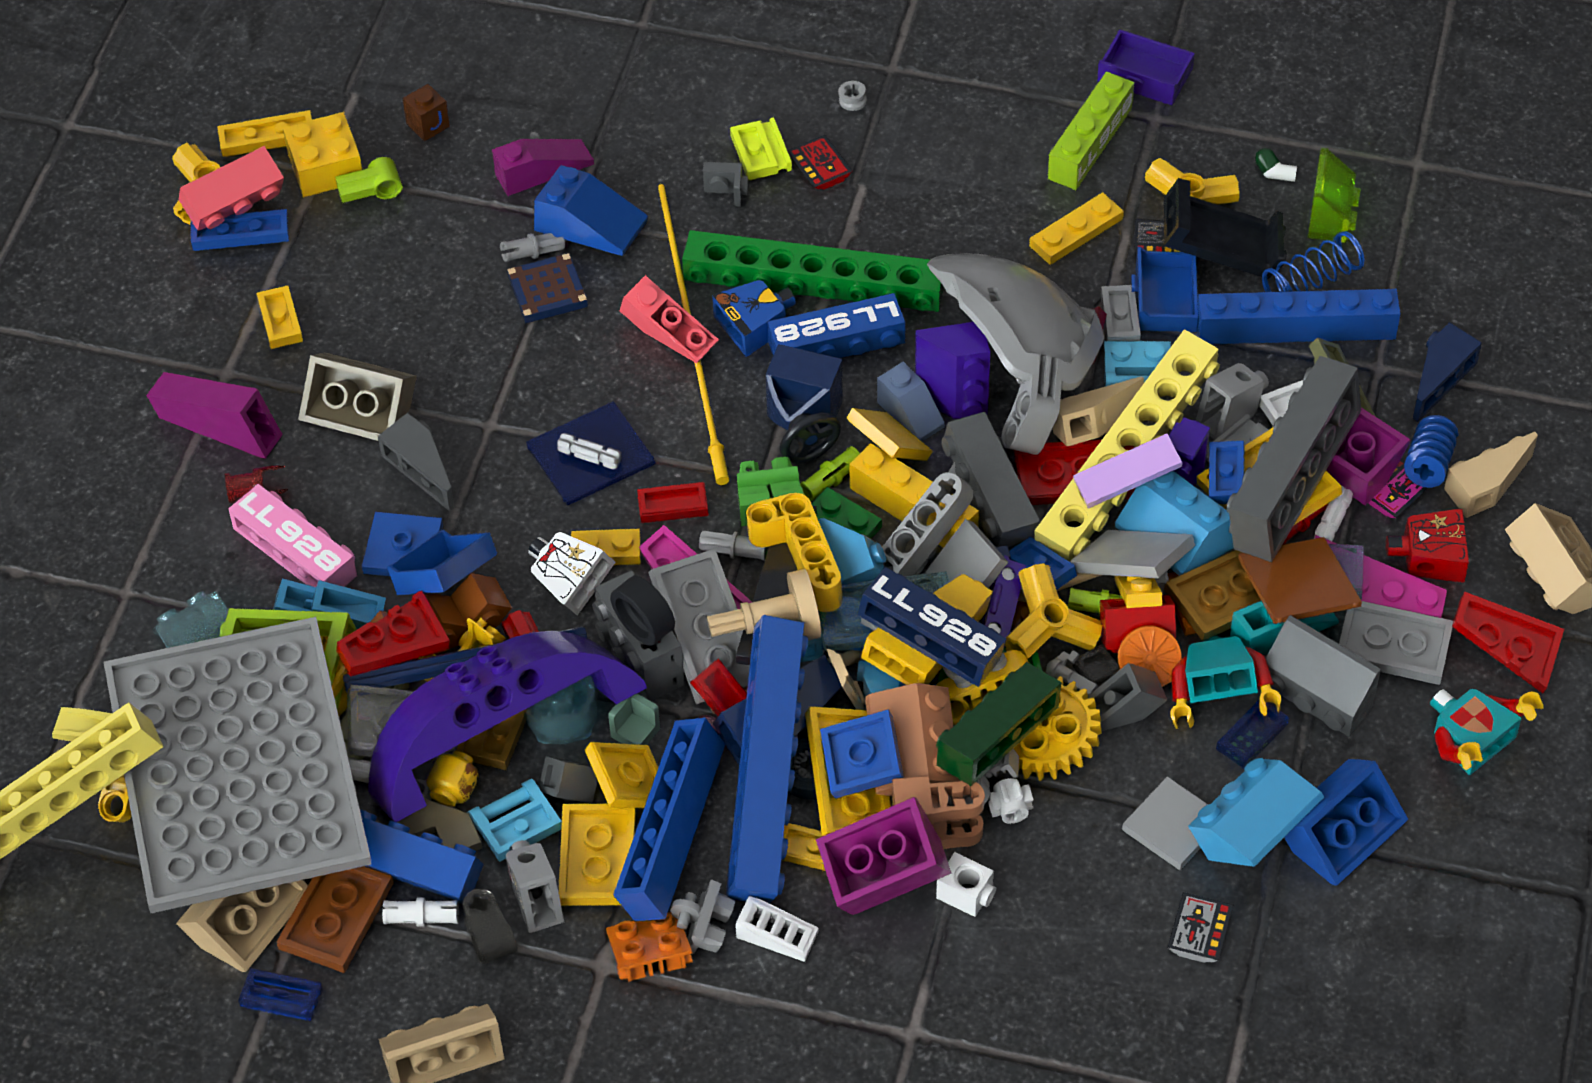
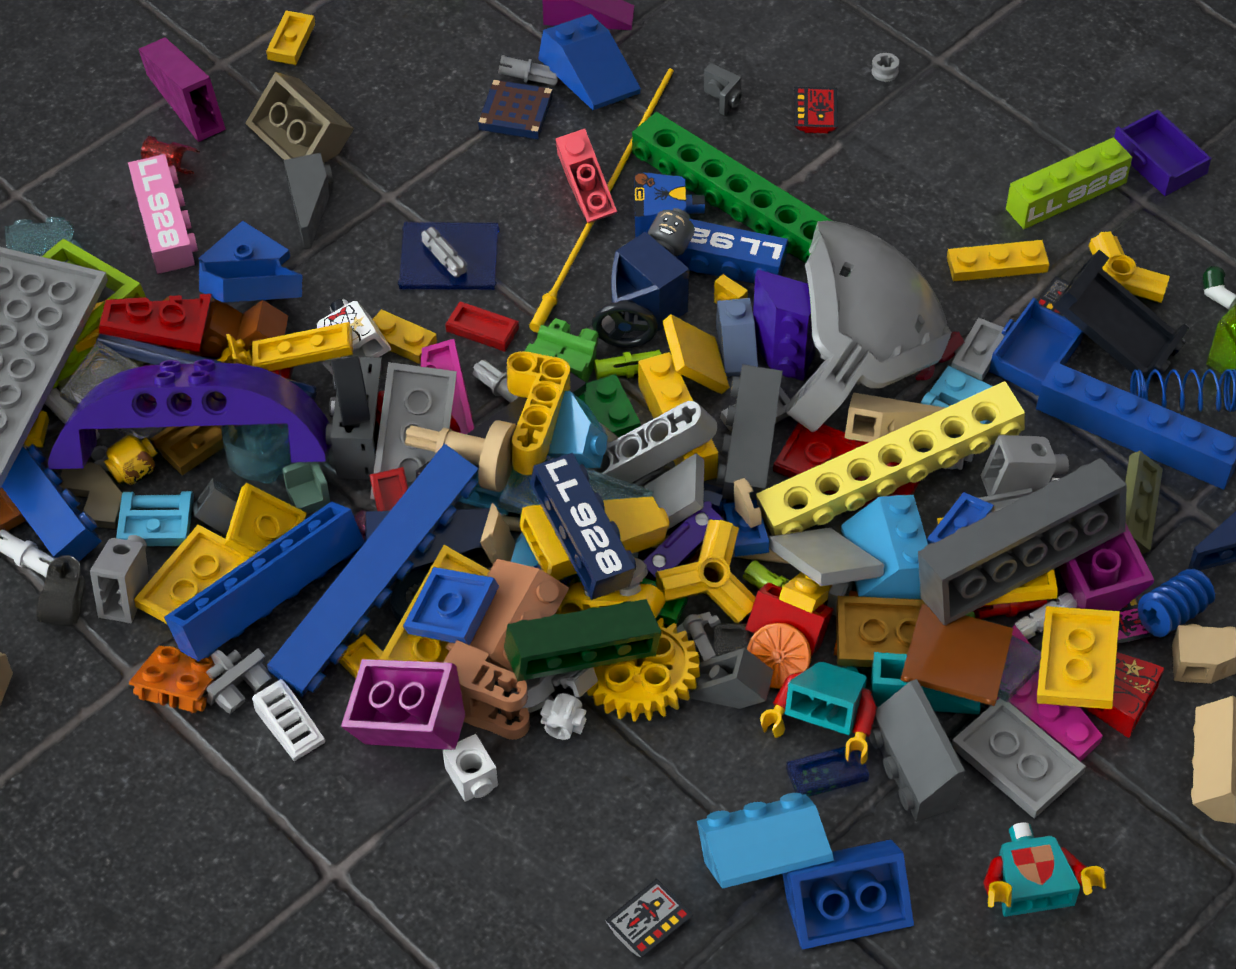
camera: 30 degrees right, 0 degrees up
(329, 598) = (147, 269): dark azure slope -> none
(541, 598) = (303, 347): none -> yellow tile
(760, 148) = (772, 75): neon yellow plate -> none
(796, 330) = (672, 230): none -> dark grey head
(874, 365) = (728, 289): none -> yellow plate
(1030, 544) = (744, 505): none -> tan tile
(1127, 470) = (866, 480): lavender tile -> none
(1164, 821) = (683, 803): light grey tile -> none
(1191, 444) = (937, 490): dark purple window -> none
(1394, 533) = (1078, 657): none -> yellow plate
(1510, 637) = (1130, 810): red wing -> none

